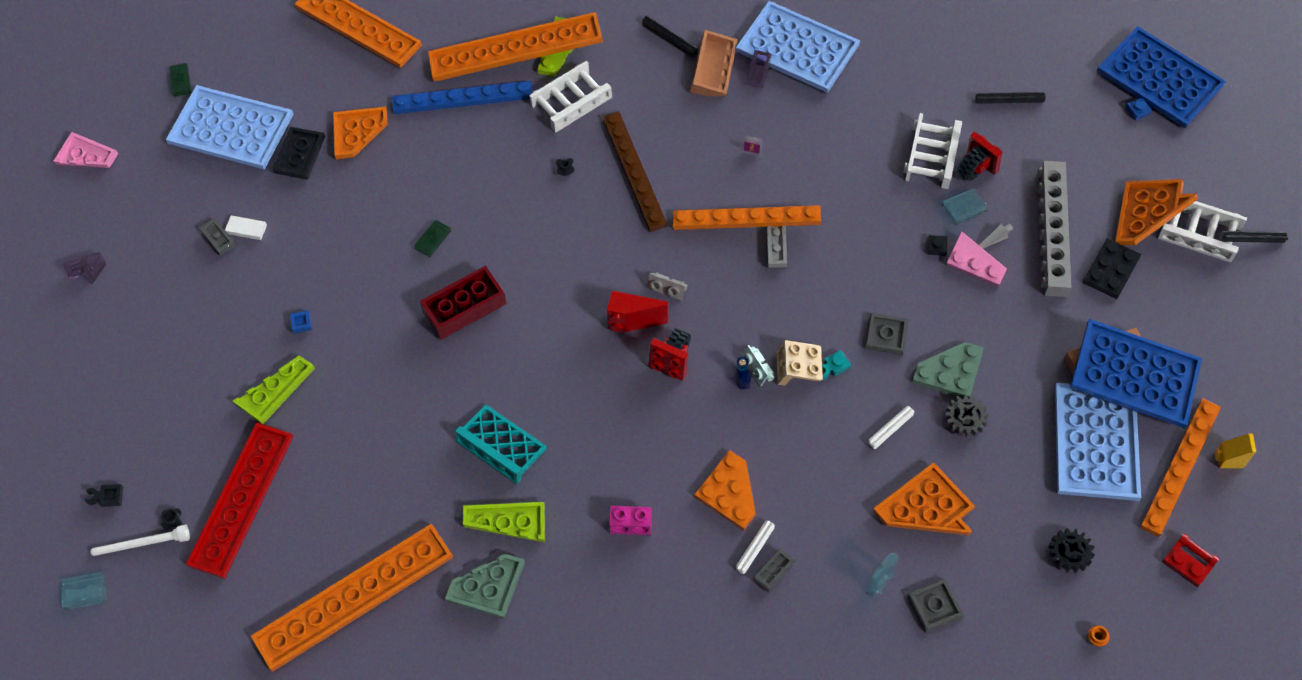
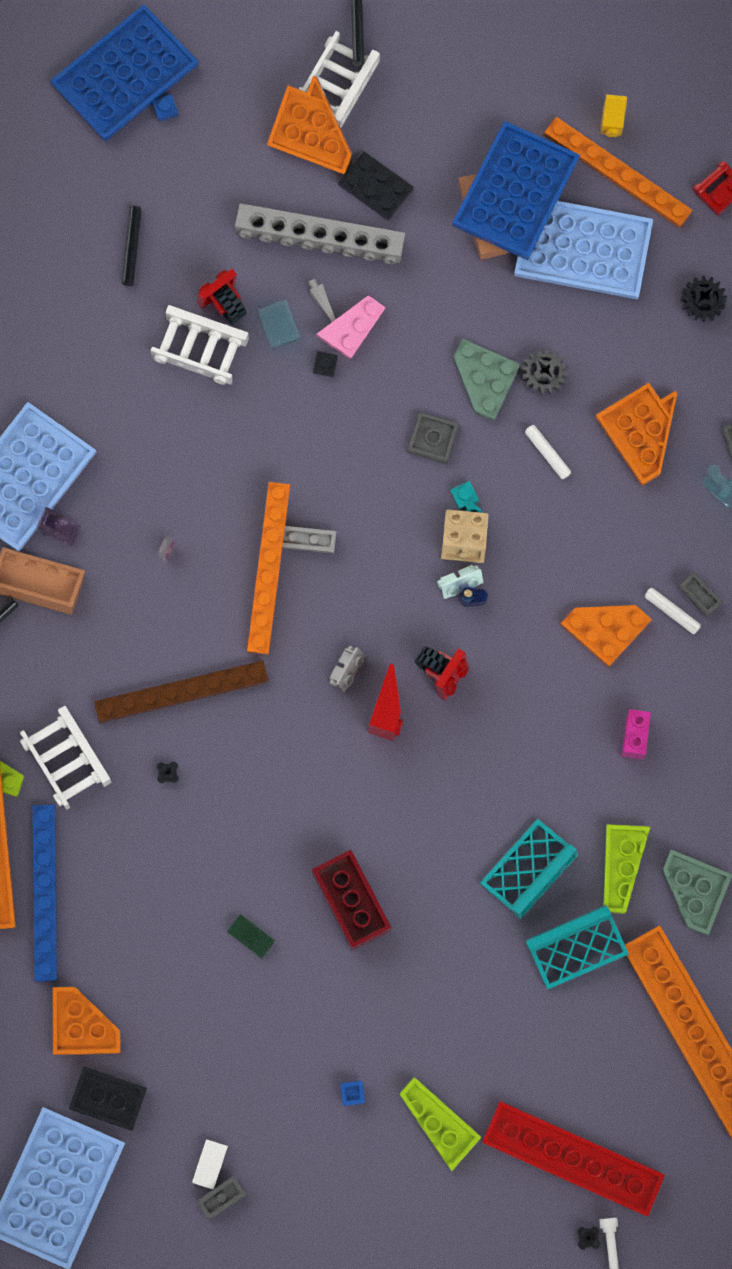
camera: 90 degrees left, 15 degrees up
(446, 480) = (568, 929): none -> teal fence

